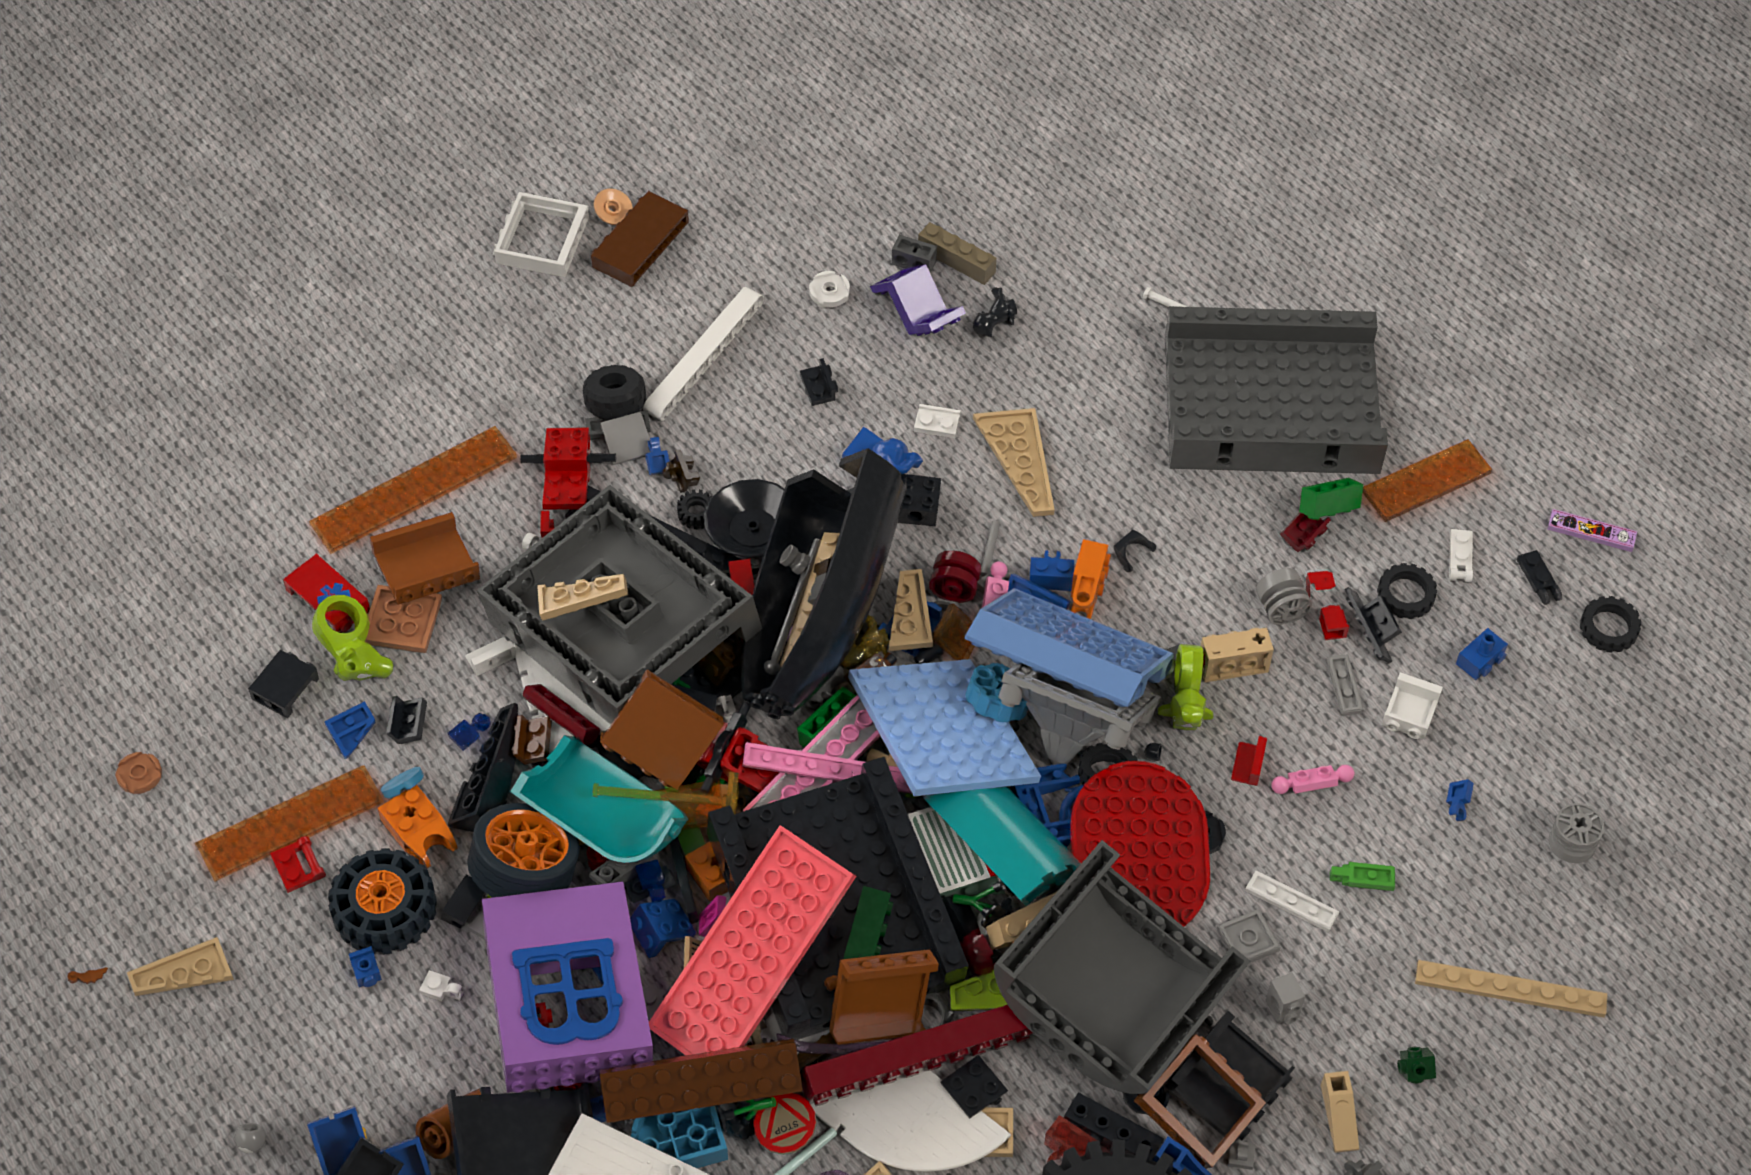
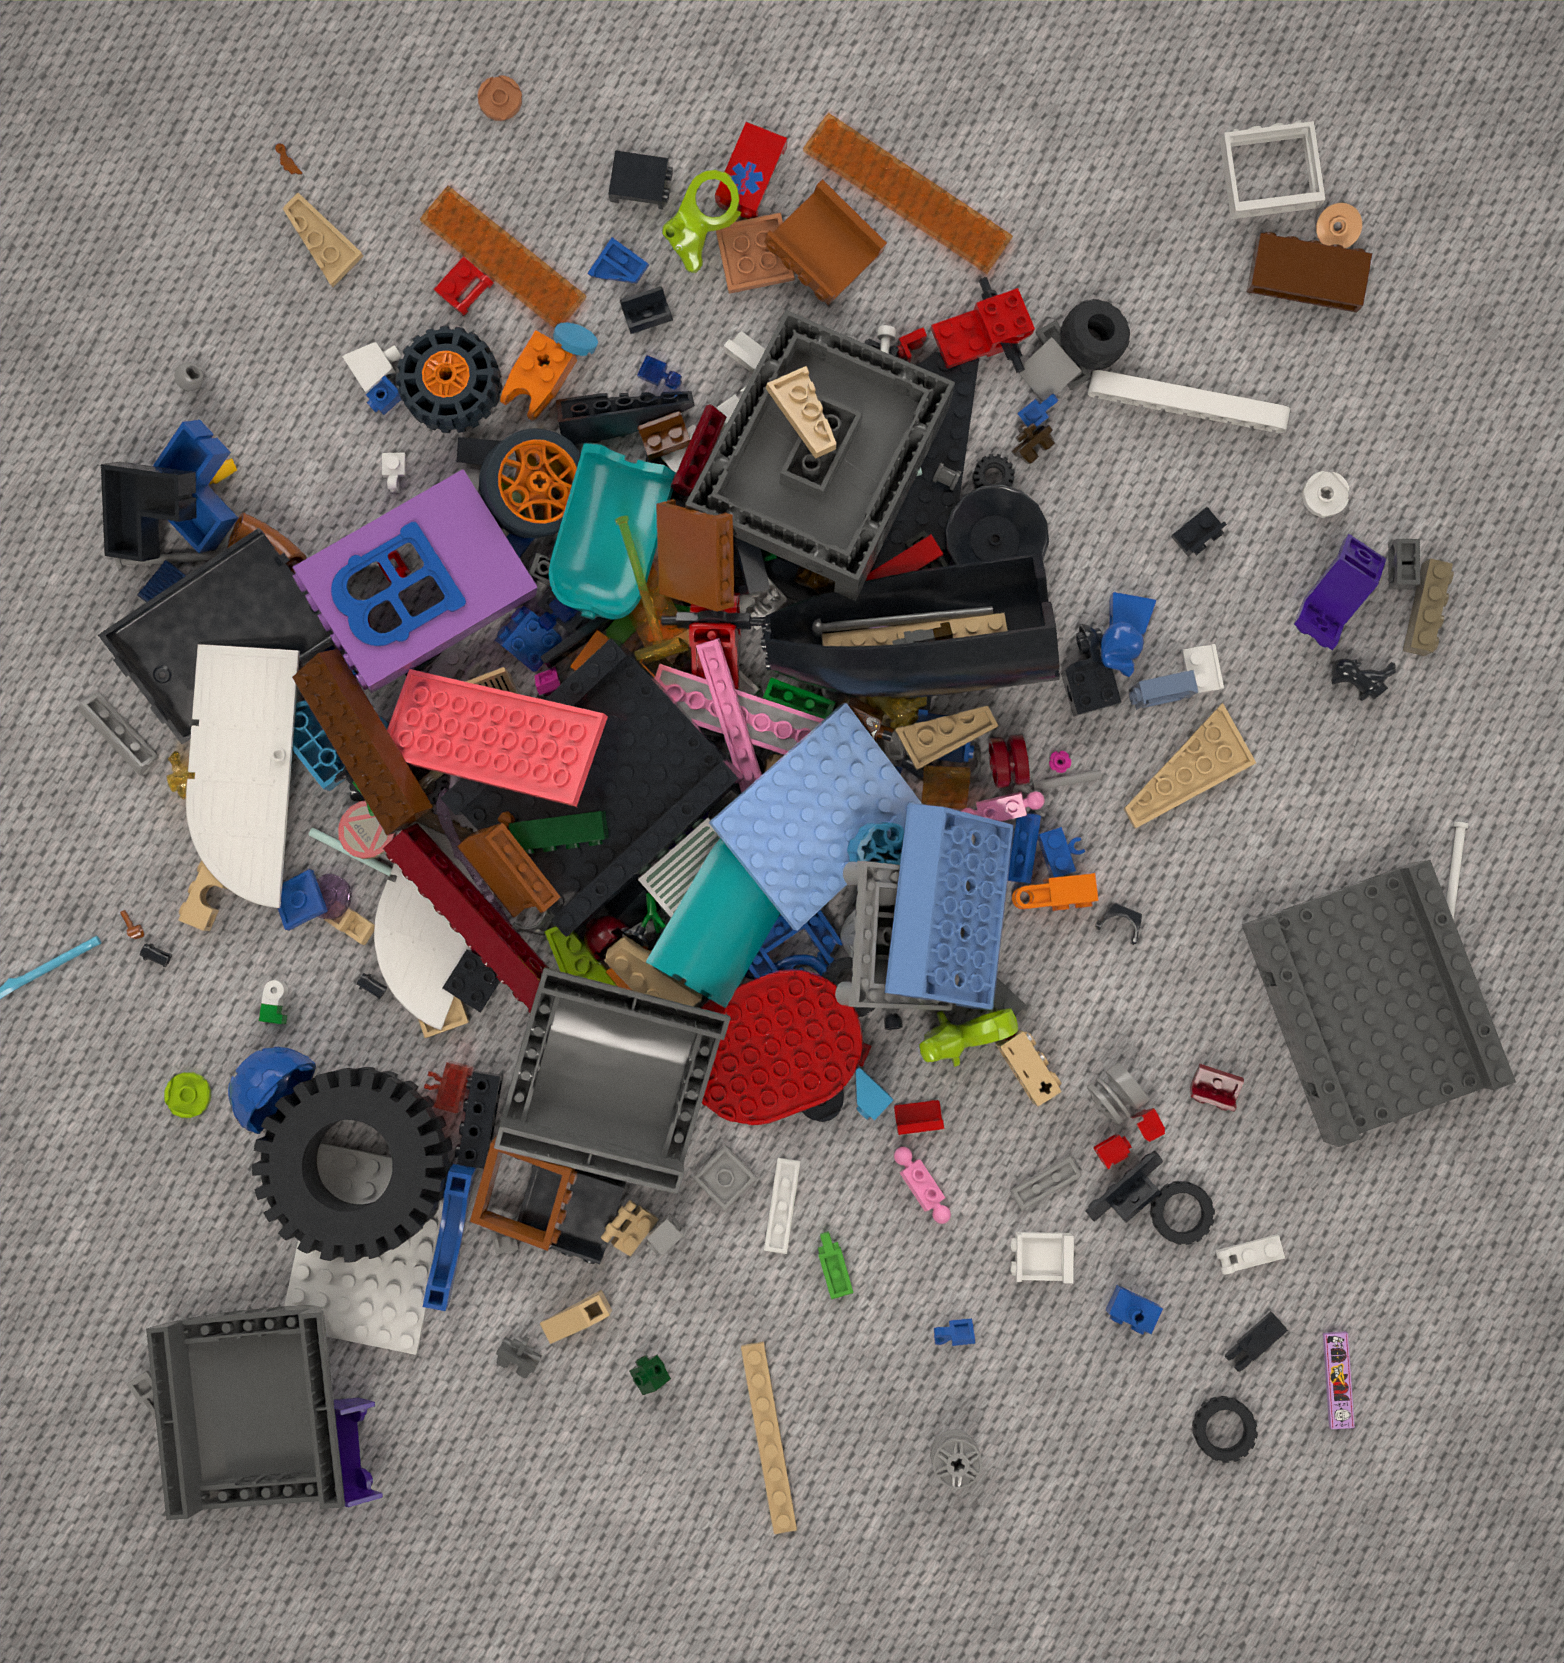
camera: 75 degrees right, 30 degrees up
(331, 968) = (371, 364): none -> white torso
(685, 534) = (946, 476): none -> dark grey bush
(794, 559) = (954, 600): light grey wheel -> none
(944, 446) = (1163, 689): none -> sand blue window
(973, 551) = (1066, 761): none -> dark pink plate
(1214, 784) = (869, 1096): none -> dark azure slope
(1268, 1033) = (633, 1231): none -> tan plate
(1331, 498) = (1258, 1104): green brick -> none
(1426, 480) = (1331, 1193): clear orange plate -> none

